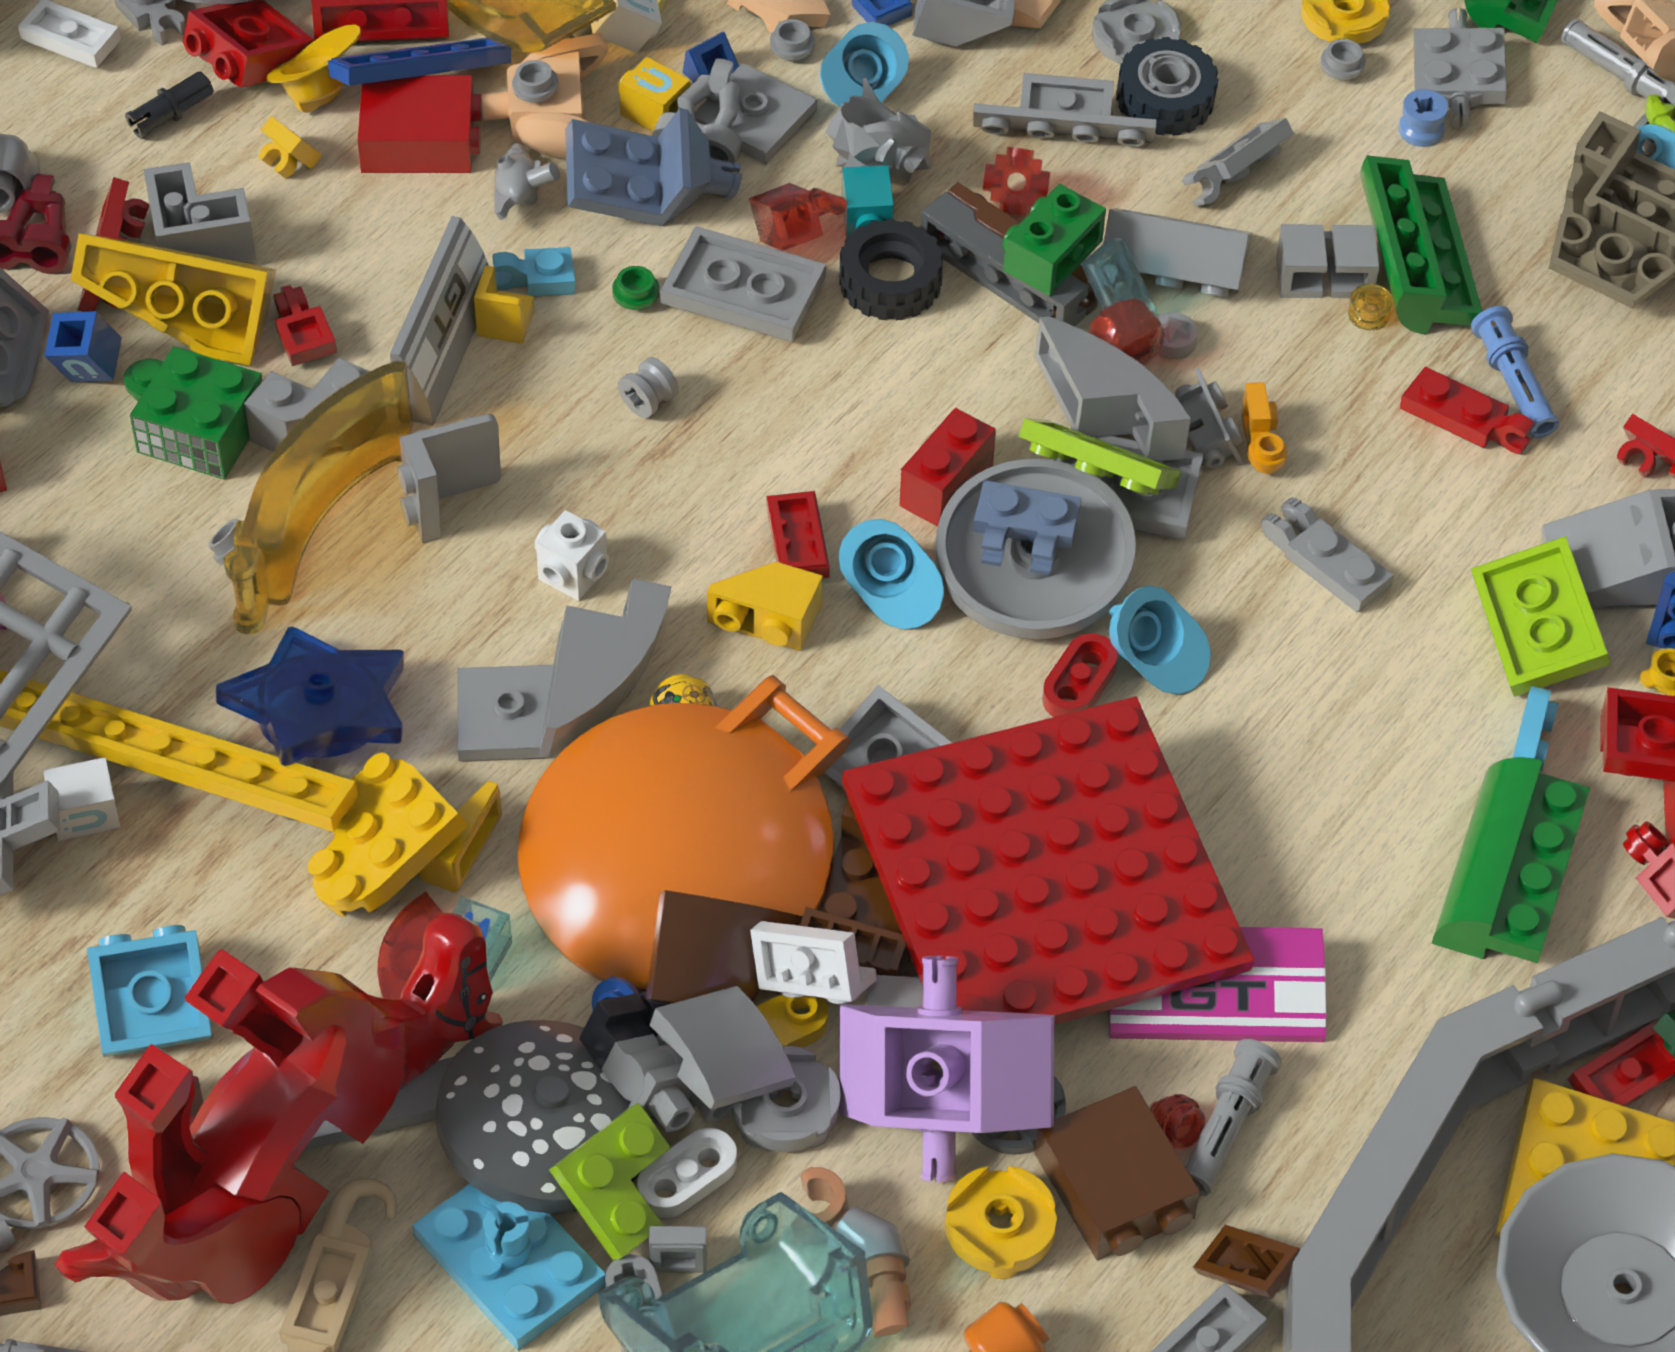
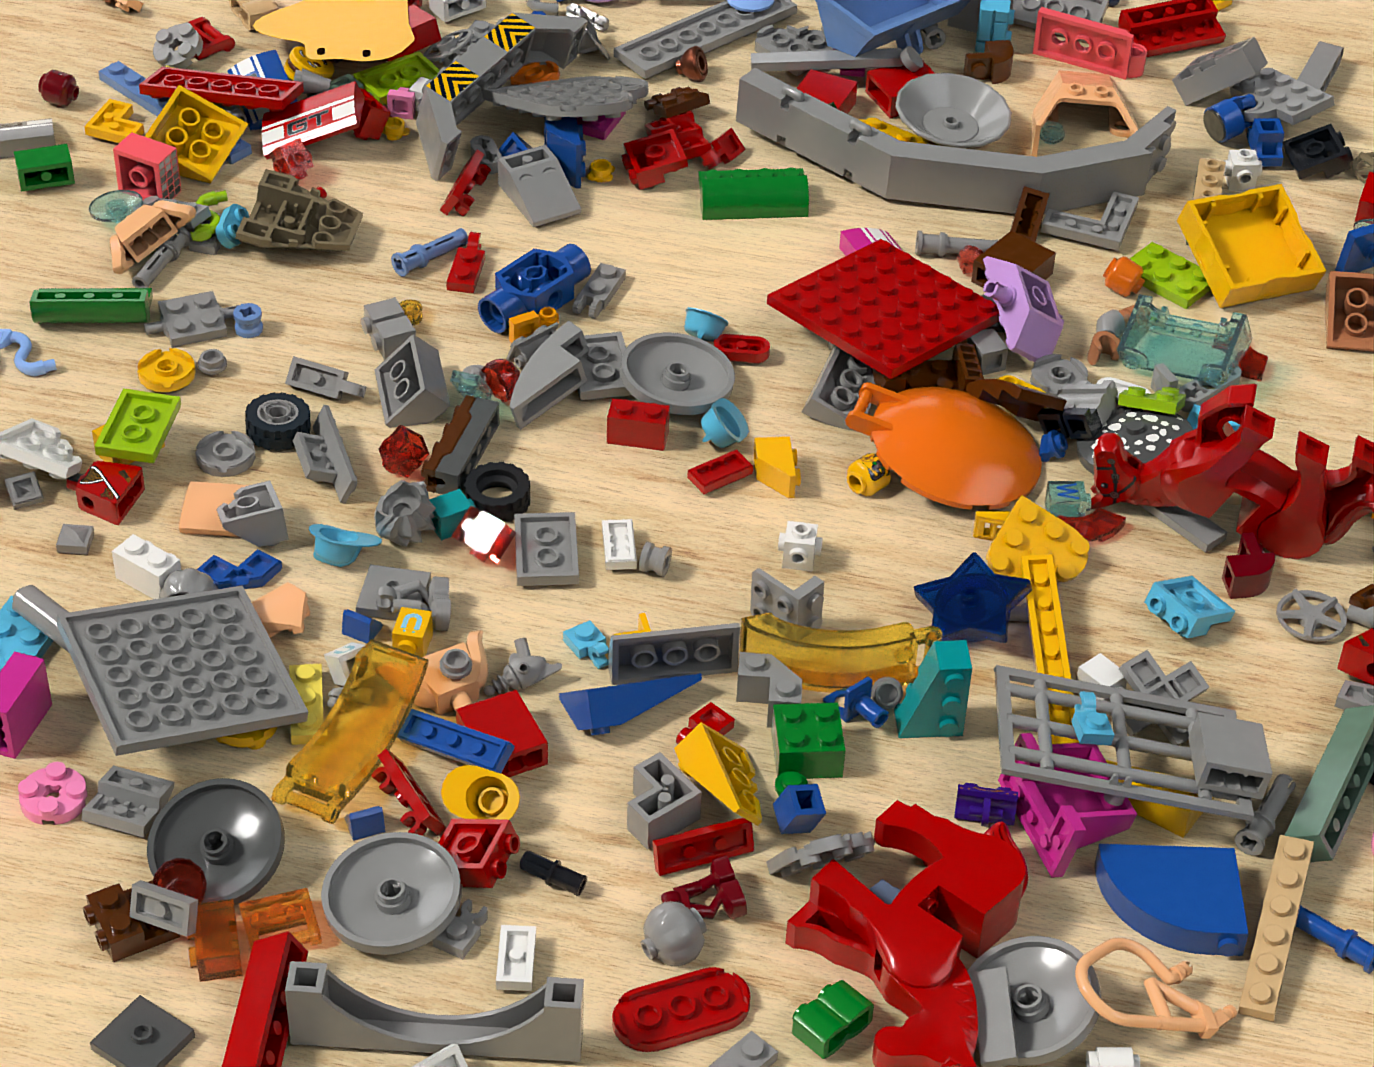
camera: 115 degrees left, 10 degrees down
(151, 554) = (939, 695): none -> teal wedge
(216, 496) = (859, 702): none -> blue bracket
(288, 146) = (557, 793): yellow tile -> none
(395, 241) = (615, 705): none -> blue wedge
(502, 711) = (912, 545): light grey plate -> none
(600, 663) = (869, 506): light grey slope -> none
(635, 288) = (576, 594): green plate -> none
(644, 174) = (487, 604): sand blue plate -> none
(710, 364) = (619, 544): none -> white plate
(724, 1047) = (1068, 378): light grey slope -> none
(792, 40) = (320, 593): light grey plate -> none
(809, 962) = (998, 357): white bracket -> none
(994, 1249) = (1077, 297): yellow plate -> none
(1025, 515) = (669, 365): sand blue plate -> none
(1053, 239) = (461, 404): green brick -> none
(1098, 456) = (611, 350): lime plate -> none
(1347, 453) = (533, 283): none -> blue brick
(1419, 245) = (348, 300): green brick -> none
(1537, 716) = (670, 200): medium azure plate -> none
(1540, 616) = (600, 207): lime plate -> none

